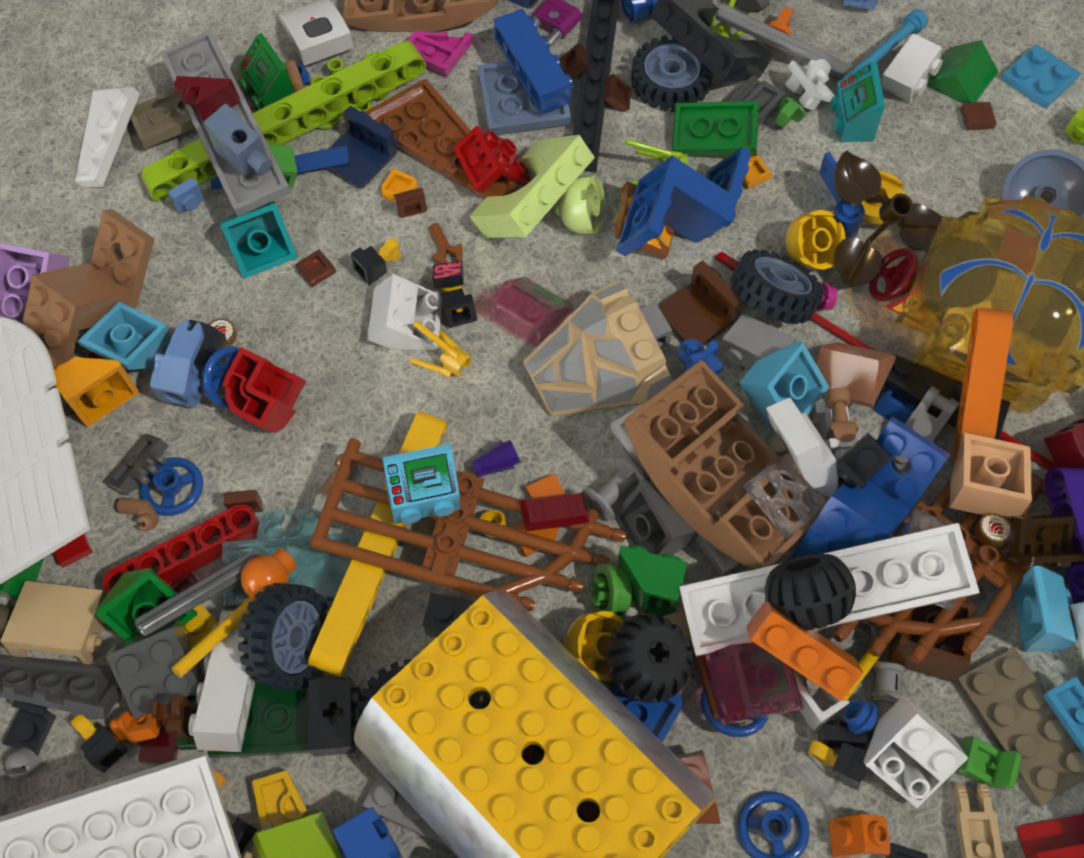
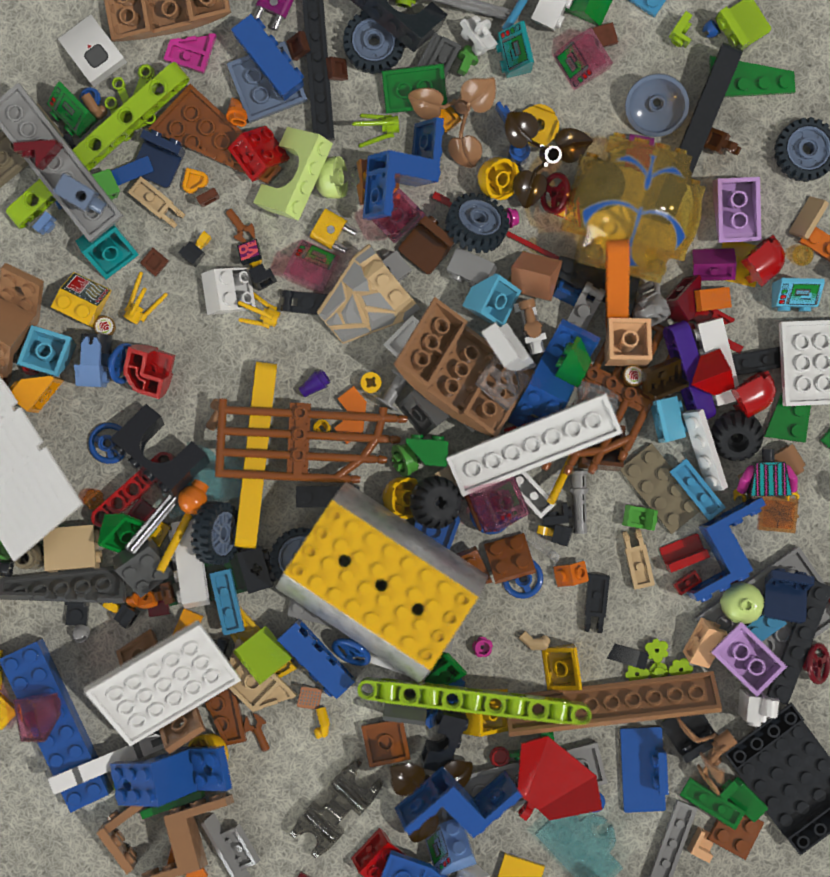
camera: 15 degrees left, 25 degrees up
(116, 552) = (88, 498): none -> clear orange plate
(138, 464) = (84, 435): dark grey hinge -> none
(141, 509) = (97, 464): medium nougat arm -> none
(198, 292) = (81, 299): none -> slope
(238, 530) = (170, 475): none -> black arch
(250, 498) = (159, 447): copper tile -> none
(268, 320) = (133, 310): none -> yellow plant
(270, 757) = (227, 602): none -> dark azure plate
(339, 197) = (154, 200): none -> tan hinge
(421, 484) = (276, 428): medium azure slope -> none
(474, 115) = (236, 113): none -> orange piece
(510, 353) = (307, 302): none -> black plate
(554, 512) = (359, 416): dark red tile -> none
(565, 269) = (329, 229): none -> yellow piece
(579, 480) = (372, 384): none -> yellow wheel
(663, 260) = (402, 219): none -> clear pink slope
(693, 351) = (428, 285): blue hips -> none
(757, 786) = (509, 558): none -> dark orange plate
(804, 651) = (524, 485): orange brick -> none
(806, 122) = (475, 94): none -> medium nougat plant
(812, 590) = (523, 452): black wheel -> none
(860, 715) = (563, 510): blue plate -> none
(862, 461) = (546, 352): black bracket -> none
(905, 485) = (574, 364): none -> green slope
(912, 752) = (595, 522): white slope -> none
(948, 131) = (583, 59): none -> clear pink slope
(1030, 429) = (651, 304): none -> light grey piece

